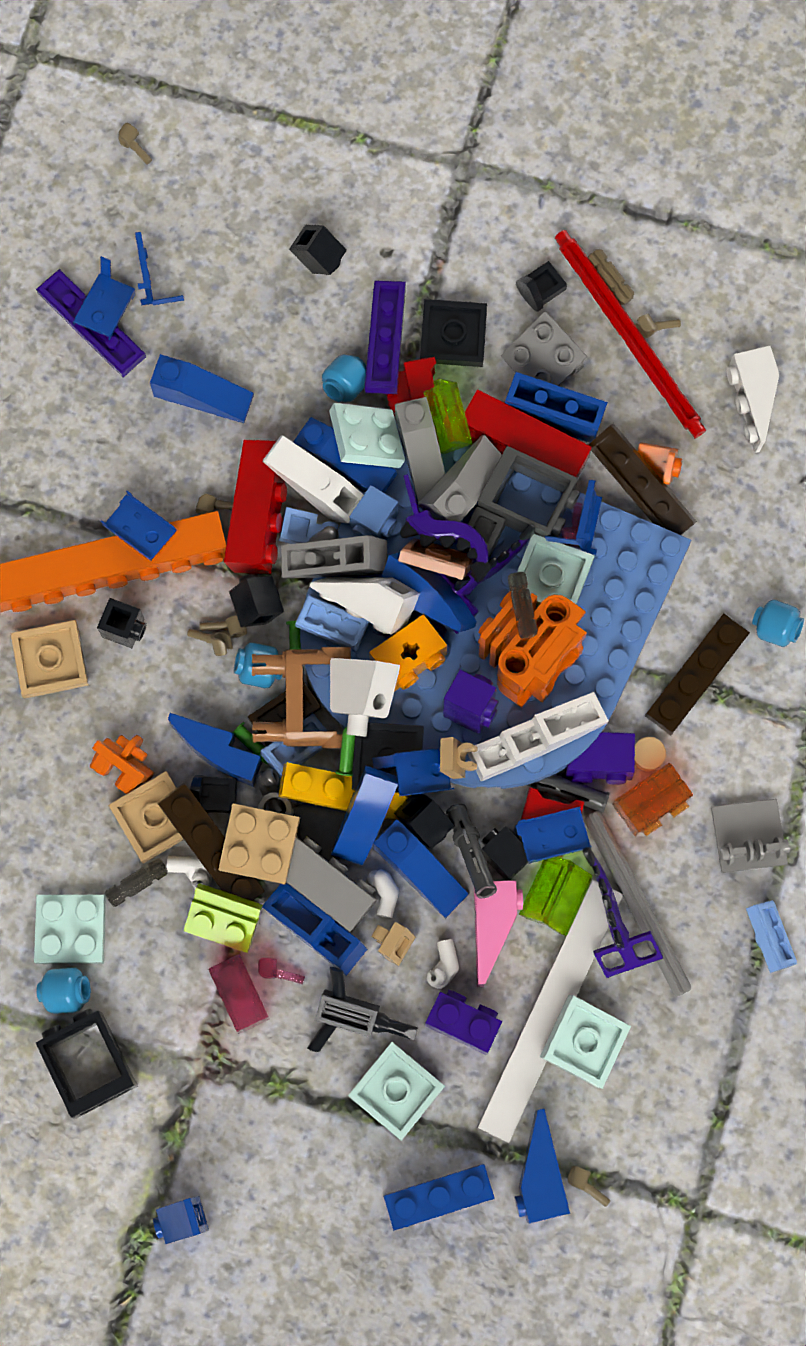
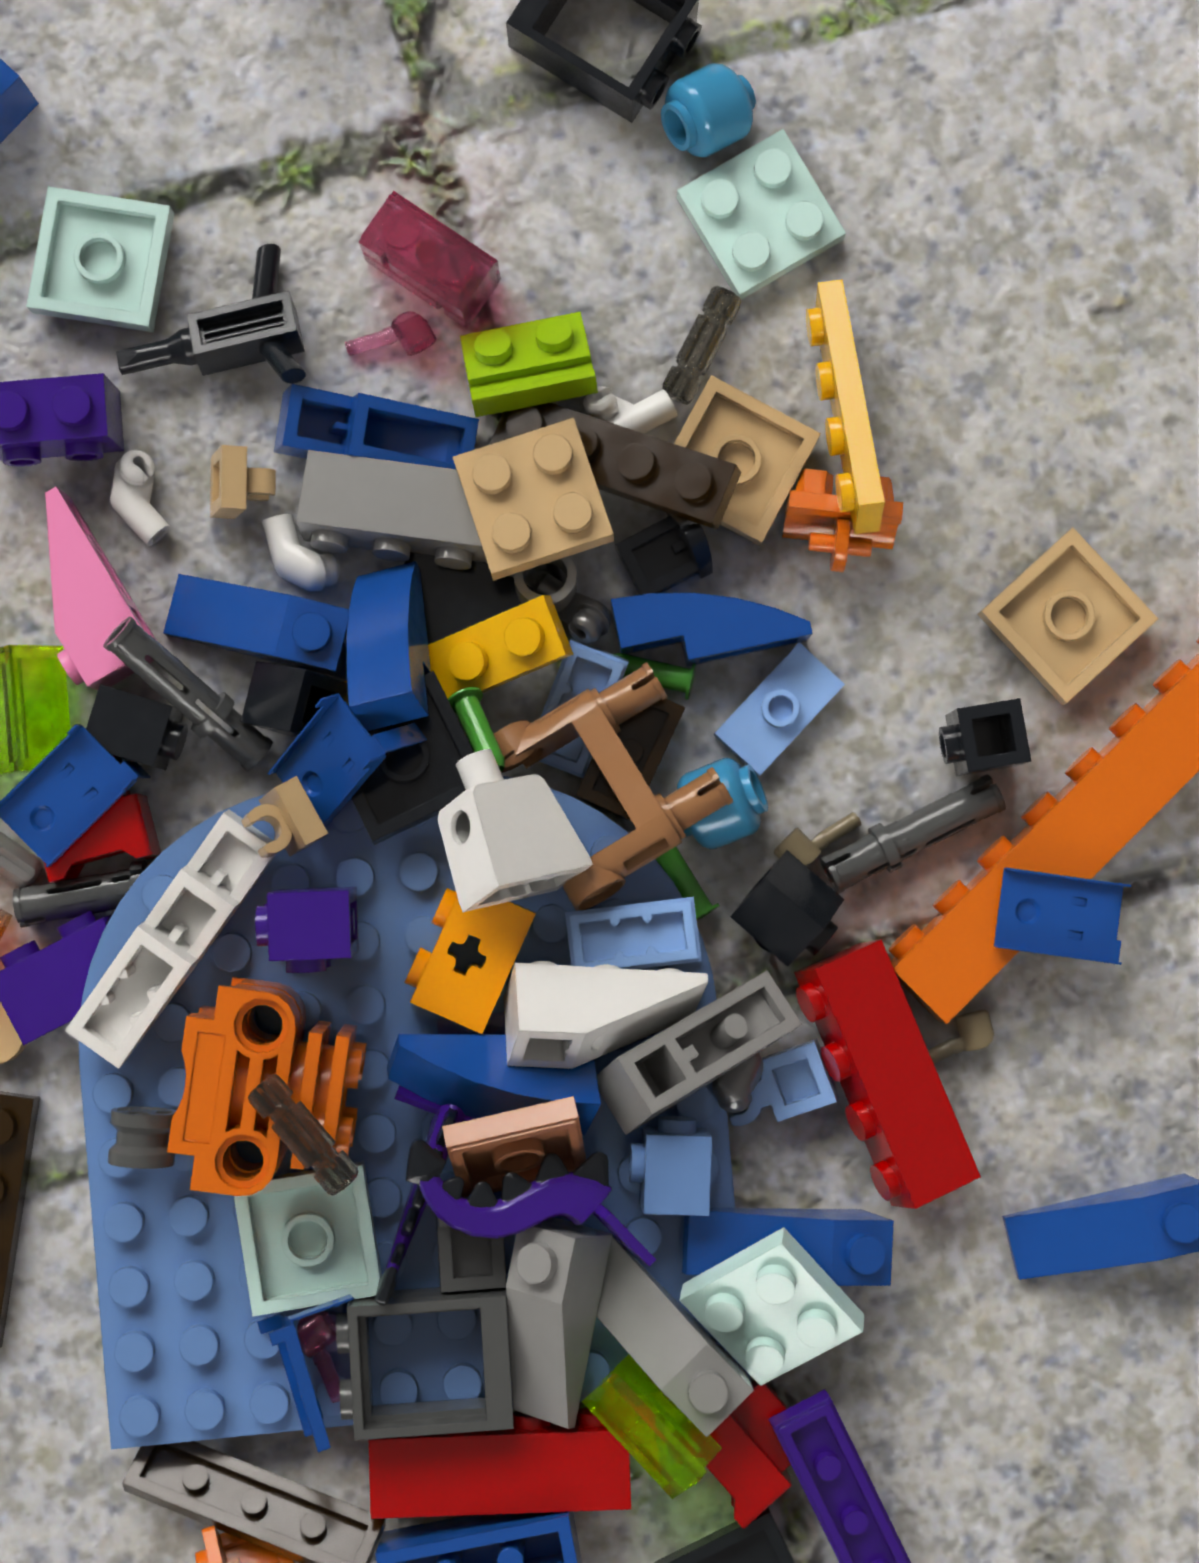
camera: 155 degrees right, 10 degrees up
(94, 794) = (849, 428): none -> yellow plate
(181, 604) = (891, 844): none -> dark grey pin
(205, 694) = (779, 709): none -> light blue plate
(220, 641) = (812, 810): dark tan hand -> none
(313, 480) = (814, 1172): white slope -> none
(344, 378) = (877, 1397): dark azure head -> none
(600, 657) = (141, 1137): none -> dark grey wheel

